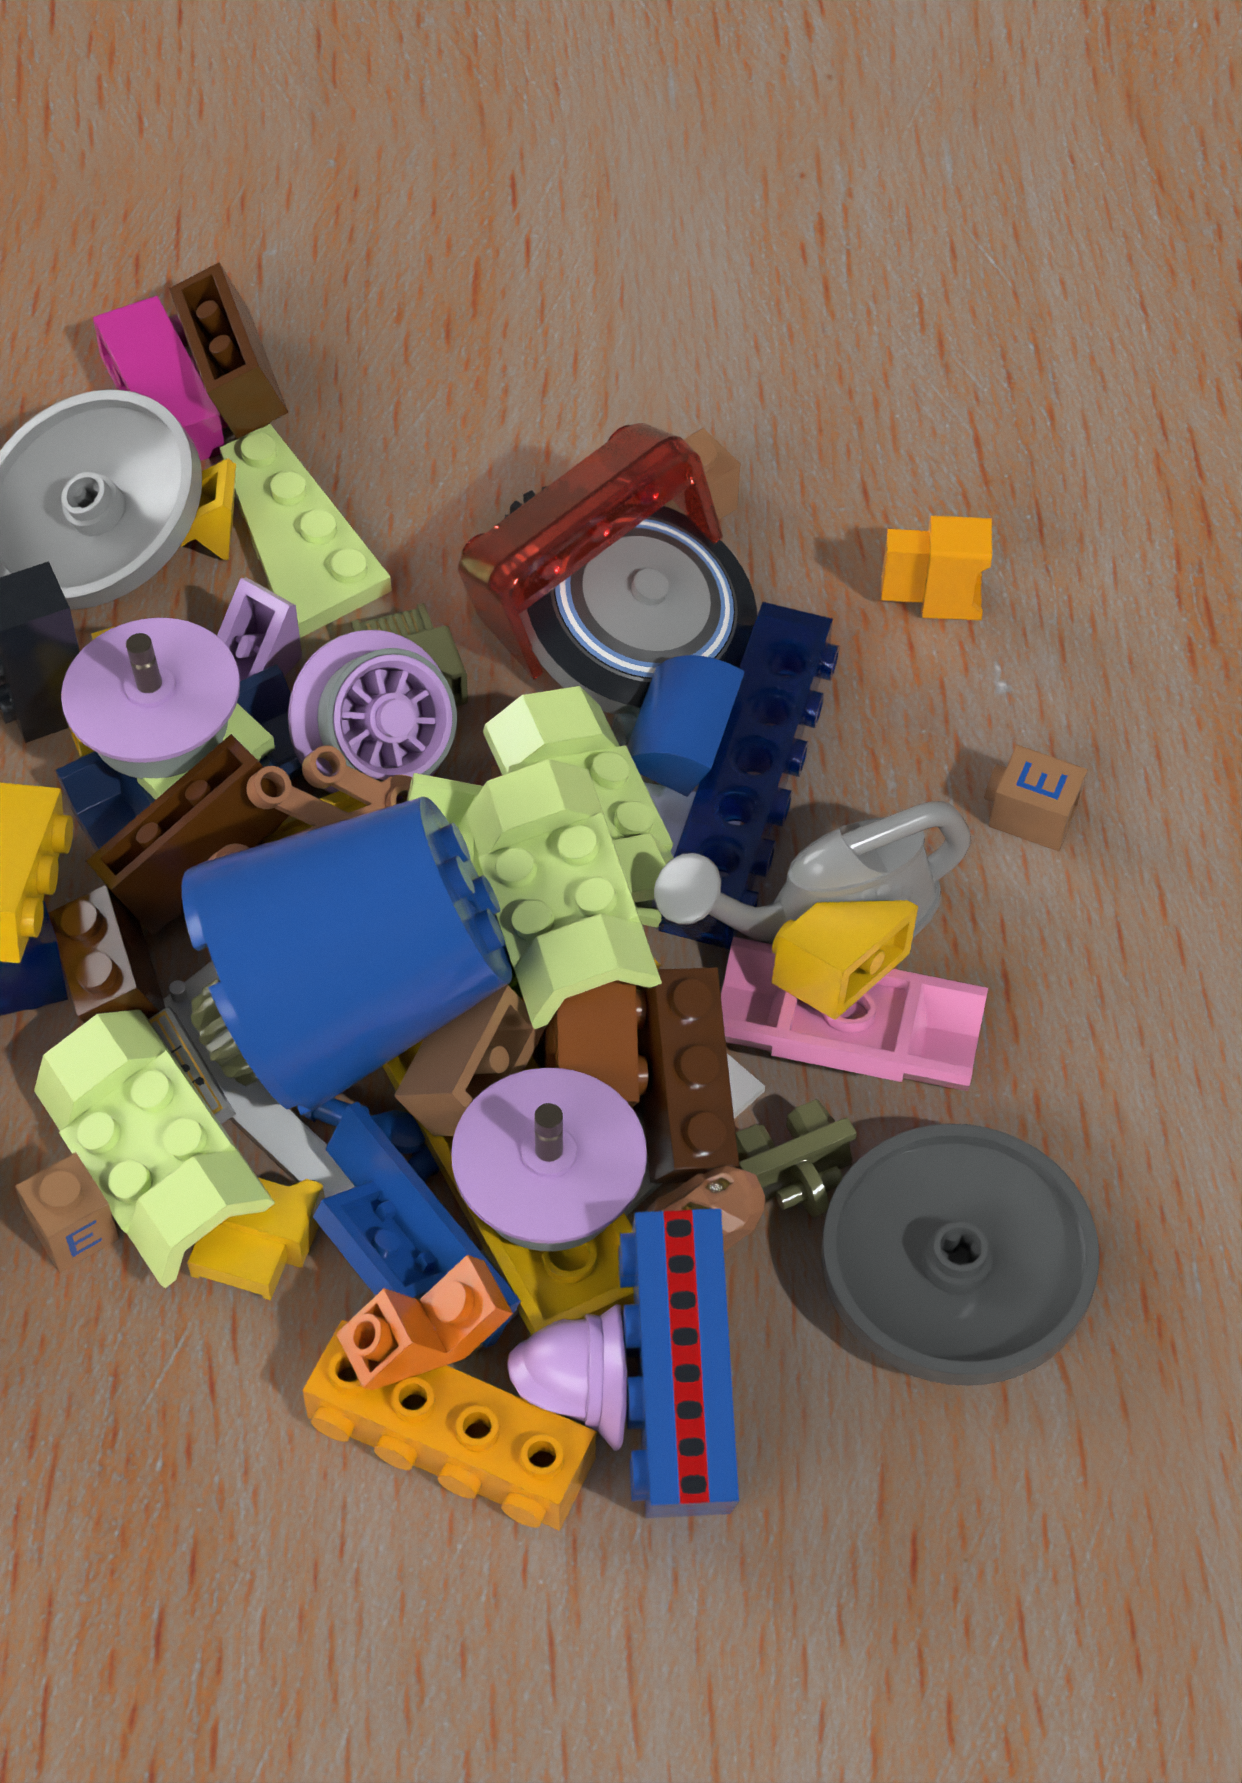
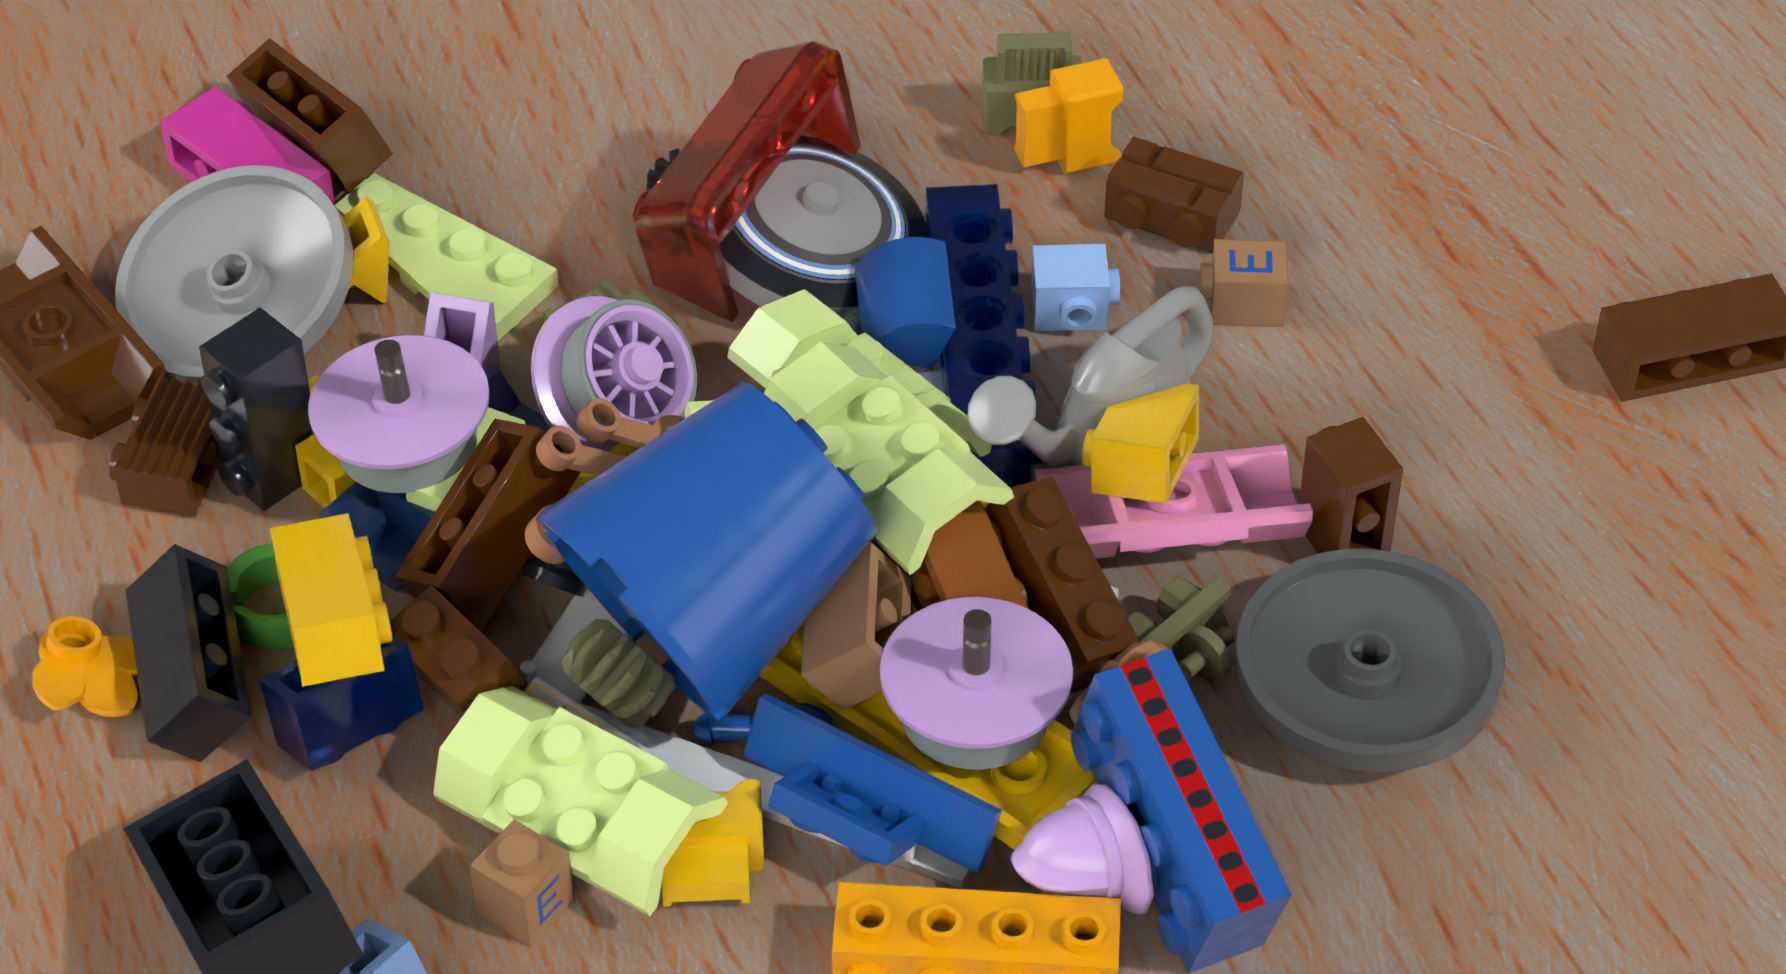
camera: 20 degrees left, 10 degrees down
(410, 1336) = (939, 854): orange slope -> none
(863, 749) = (1072, 287): none -> light blue brick
(910, 499) = (1020, 66): none -> olive piece
(1008, 678) = (1173, 194): none -> reddish brown brick
(1019, 1067) = (1351, 488): none -> reddish brown brick

